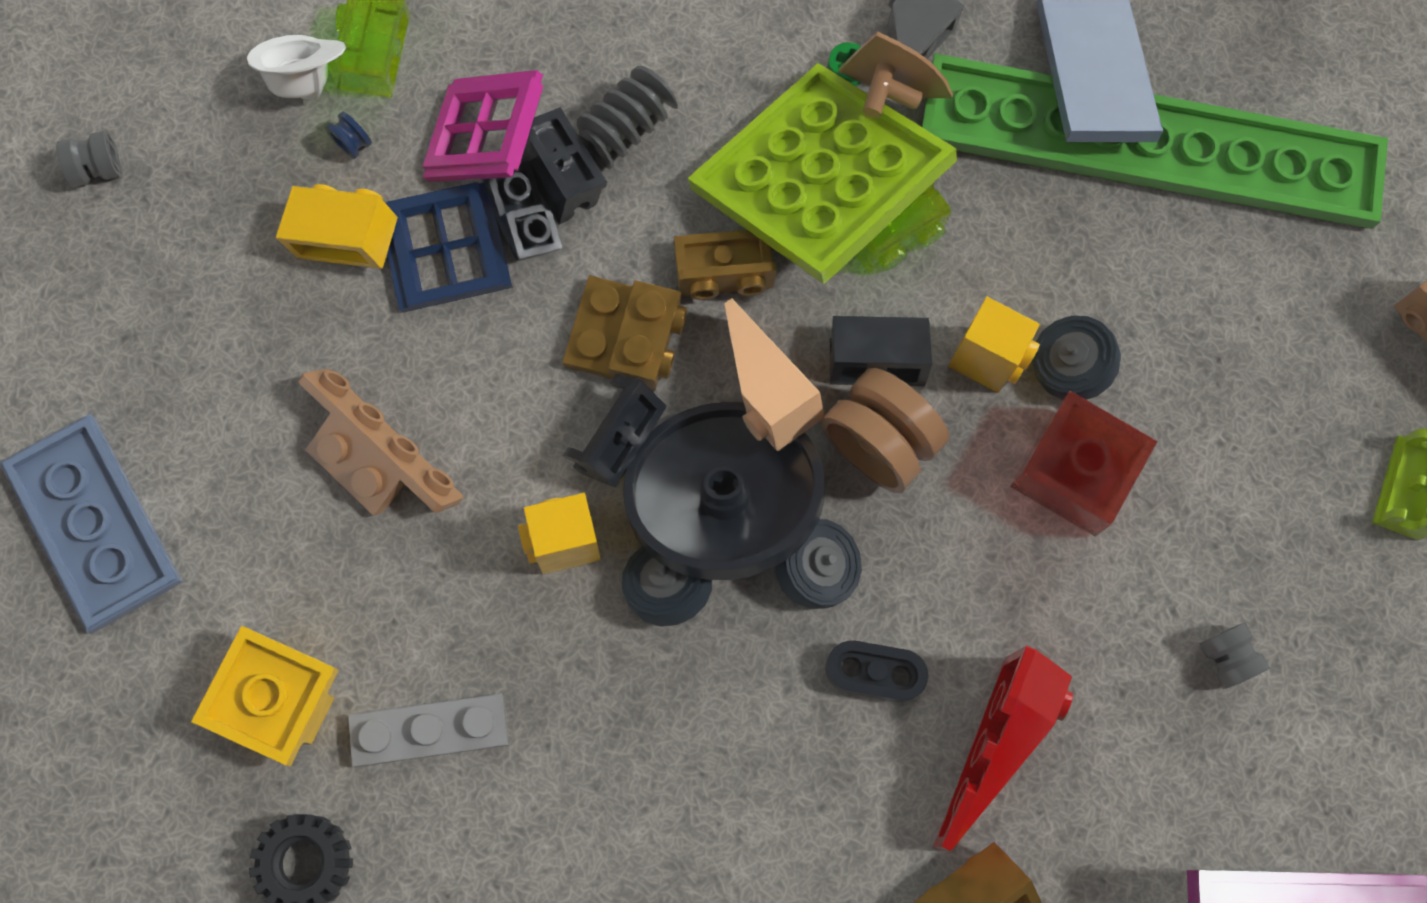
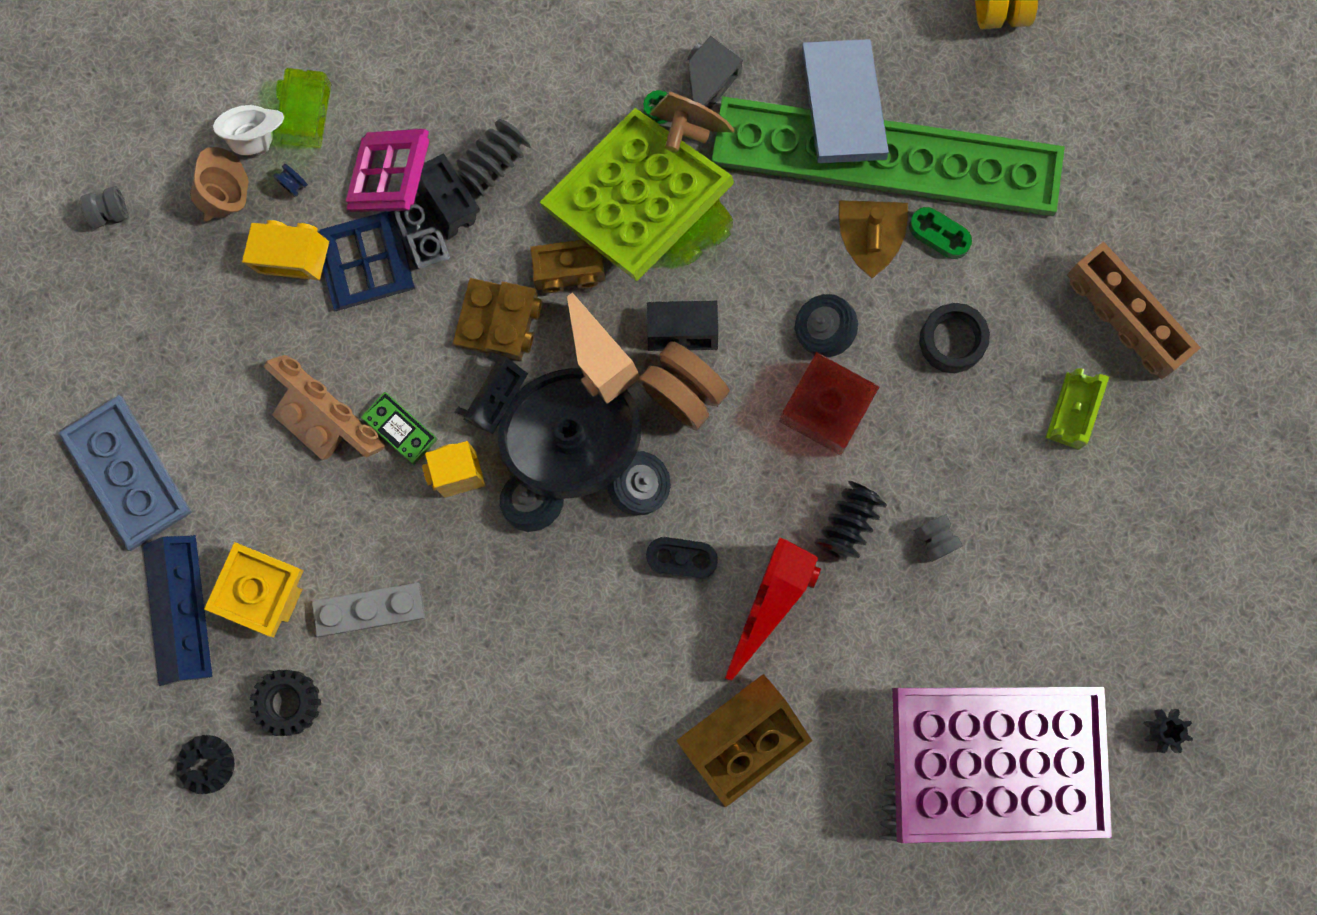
camera: 10 degrees right, 5 degrees up
(152, 722) = (177, 609): none -> dark blue panel
(249, 135) = (218, 183): none -> medium nougat piece
(483, 475) = (399, 428): none -> tile
(996, 346) = (764, 320): yellow brick -> none
(1112, 628) = (850, 521): none -> black piece
(1132, 239) = (873, 232): none -> pearl gold shield
(1224, 243) = (944, 226): none -> green beam
(1277, 363) = (968, 315): none -> black tyre

